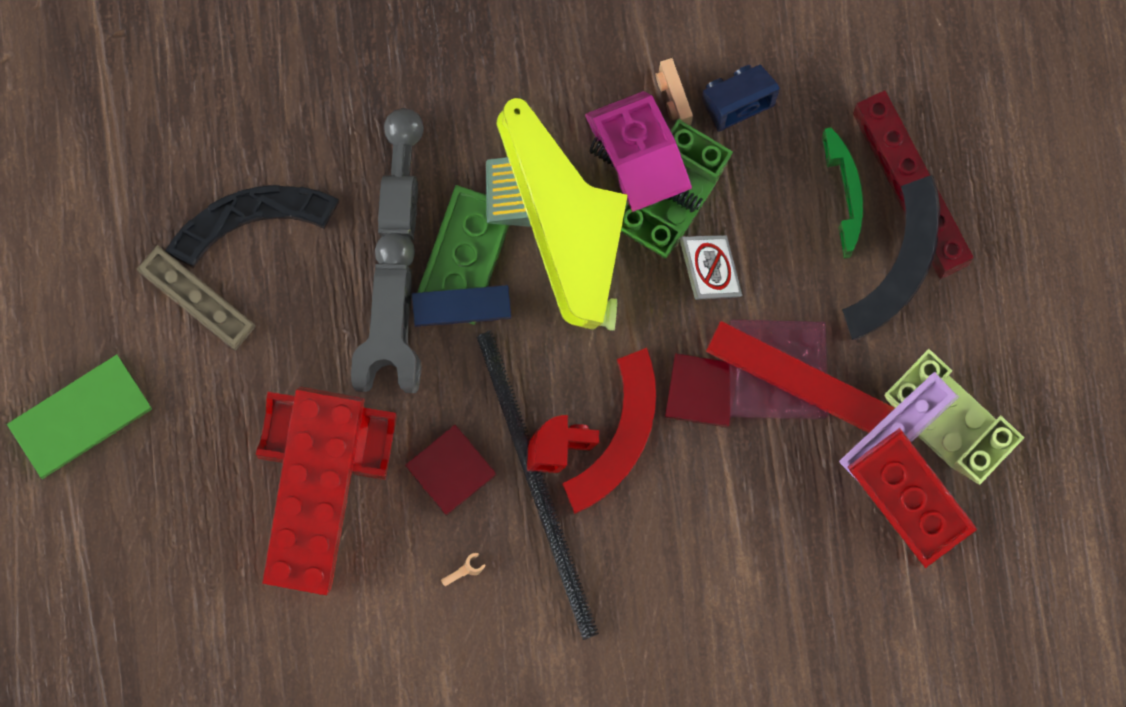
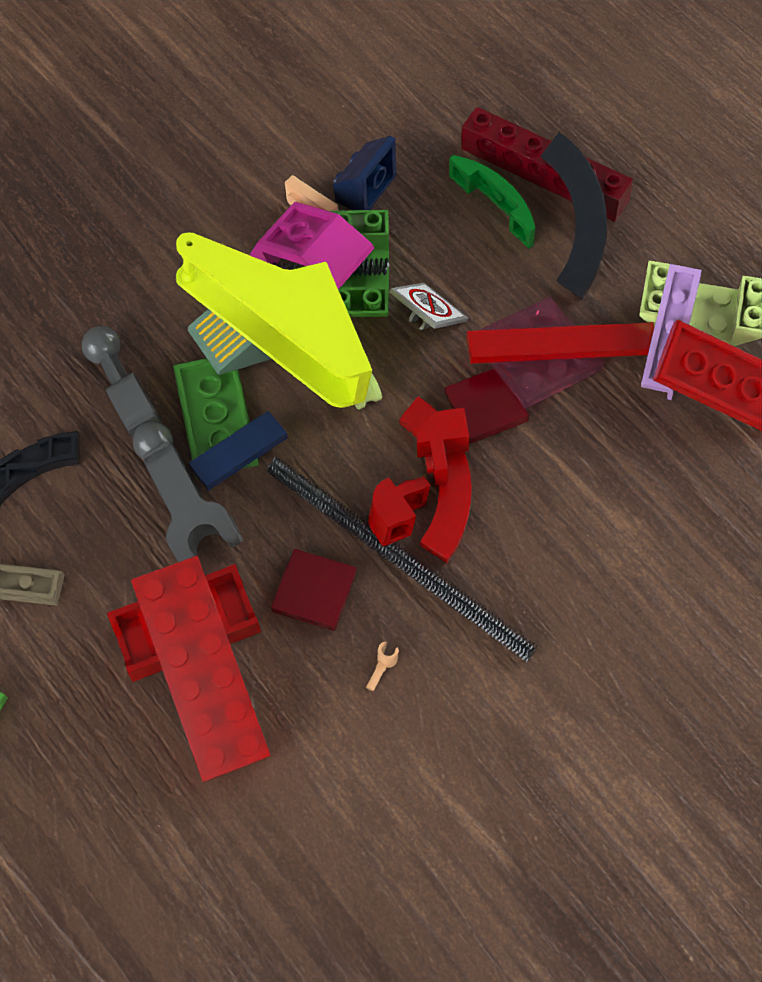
camera: 25 degrees left, 15 degrees down
(638, 400) = (441, 435): none -> red brick

